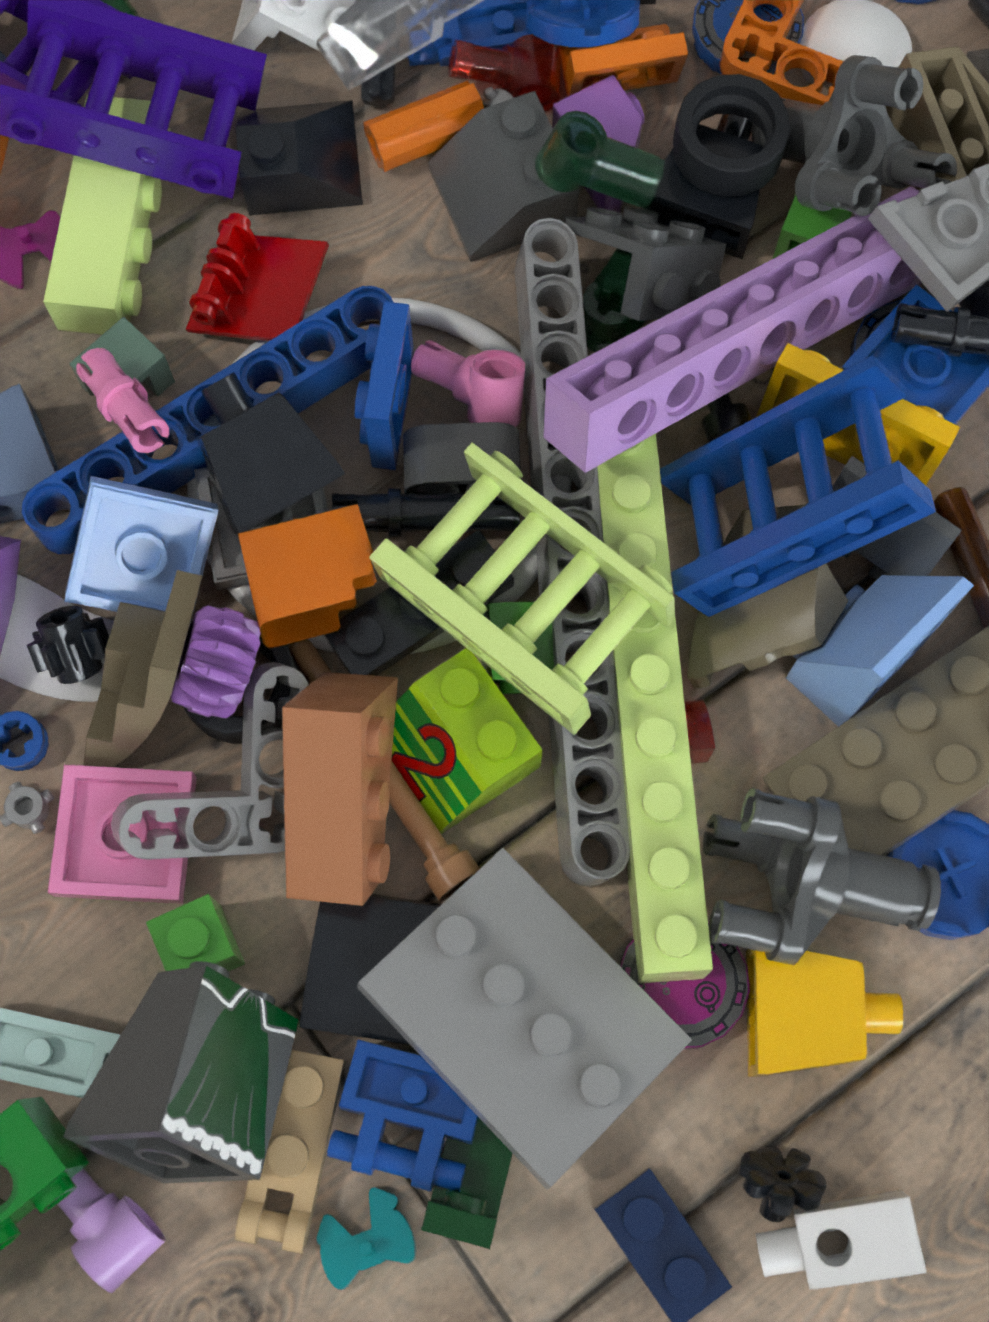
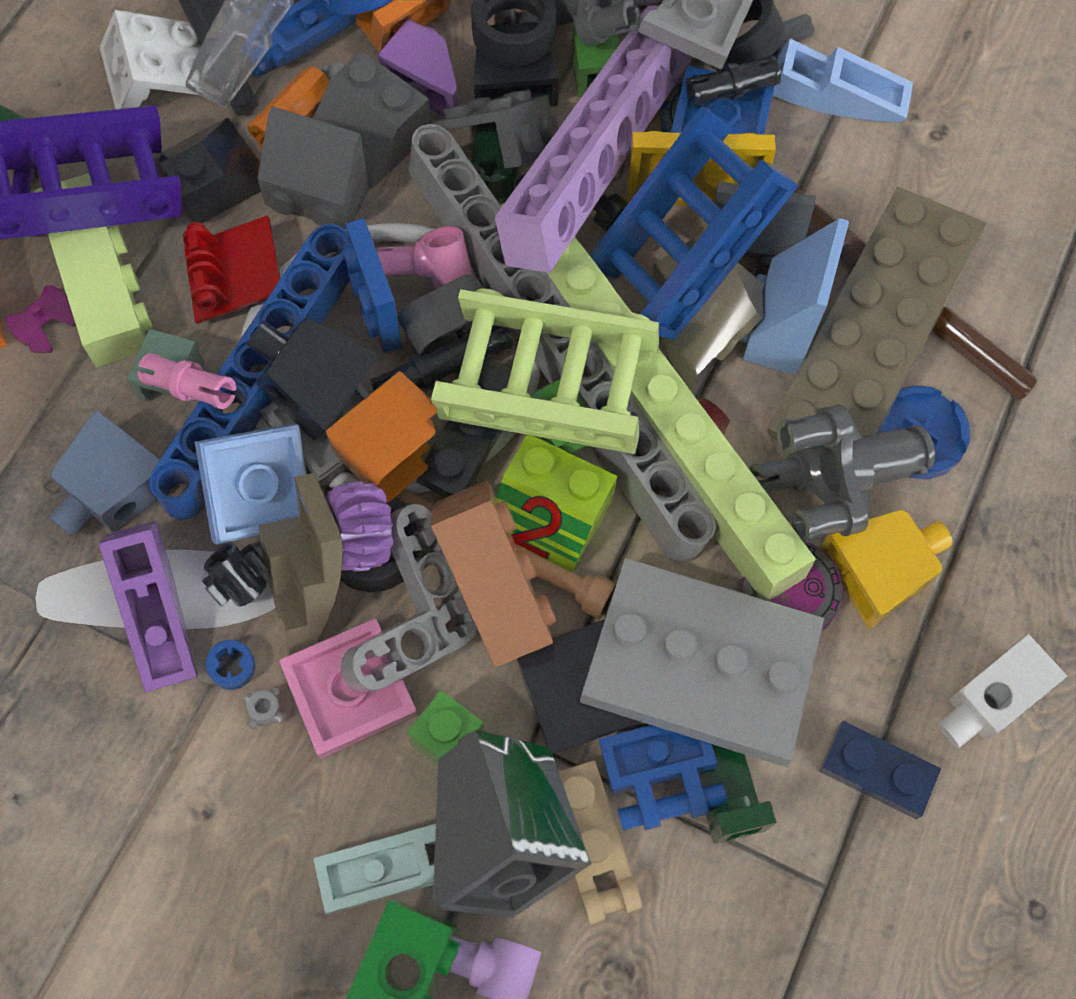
camera: 30 degrees left, 5 degrees down
(386, 1240) = (694, 866): teal piece -> none
(402, 212) = (312, 169): none -> dark grey slope
(517, 68) = (337, 43): clear red pin -> none
(584, 155) = (424, 73): clear green piece -> none
(781, 1181) = (933, 683): black plant -> none

